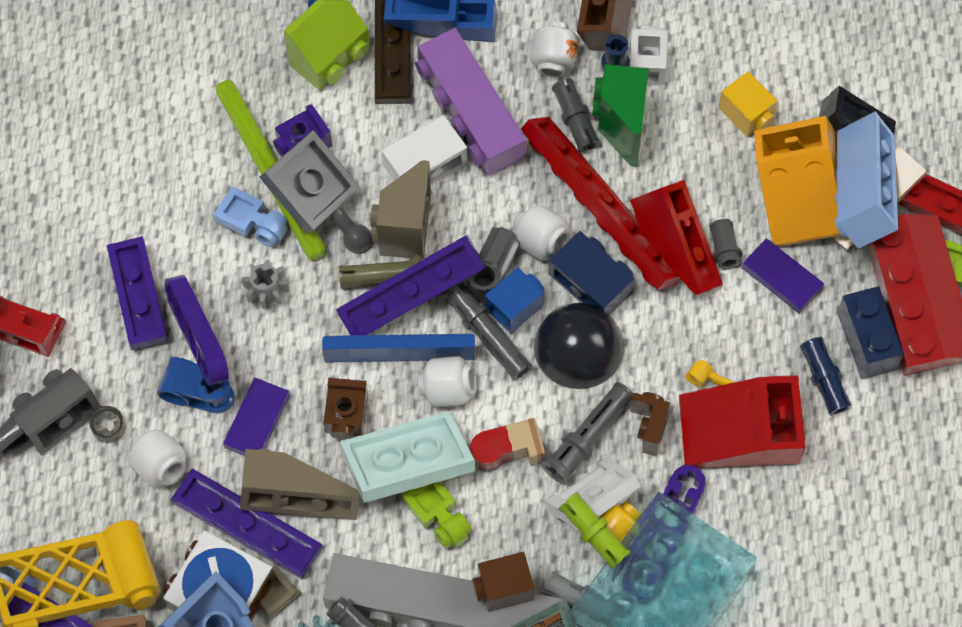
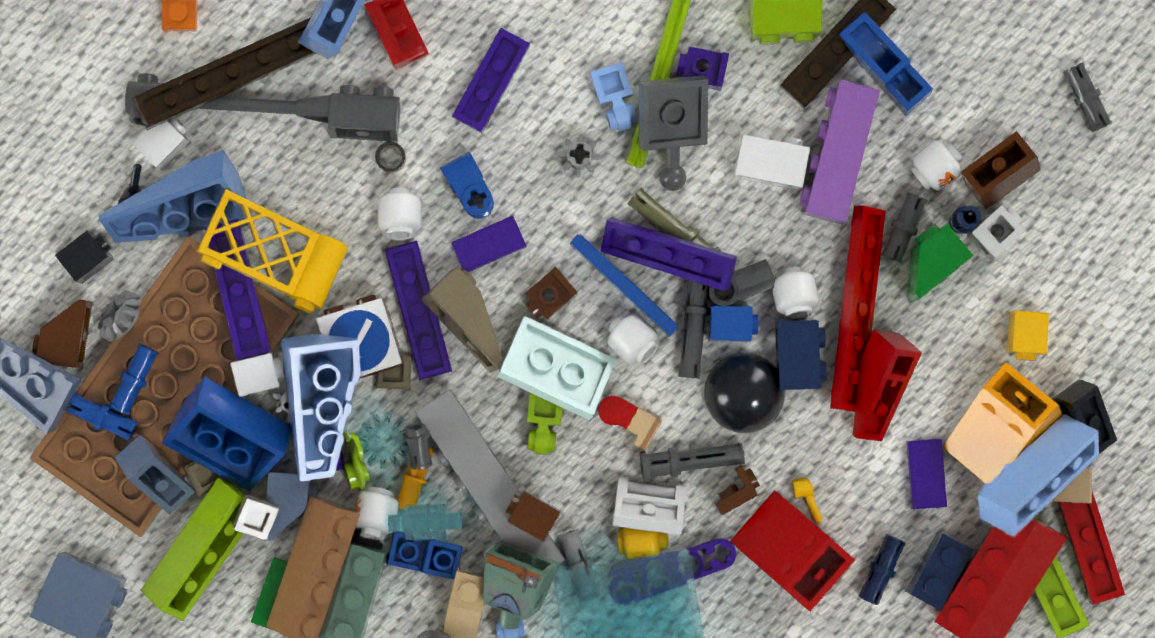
camera: 50 degrees right, 20 degrees up
(196, 330) = (501, 150): dark purple beam -> none
(403, 214) = (713, 196): dark tan slope -> none
(594, 530) = (619, 539): lime pin -> none
(725, 245) = (910, 416): dark grey pin -> none

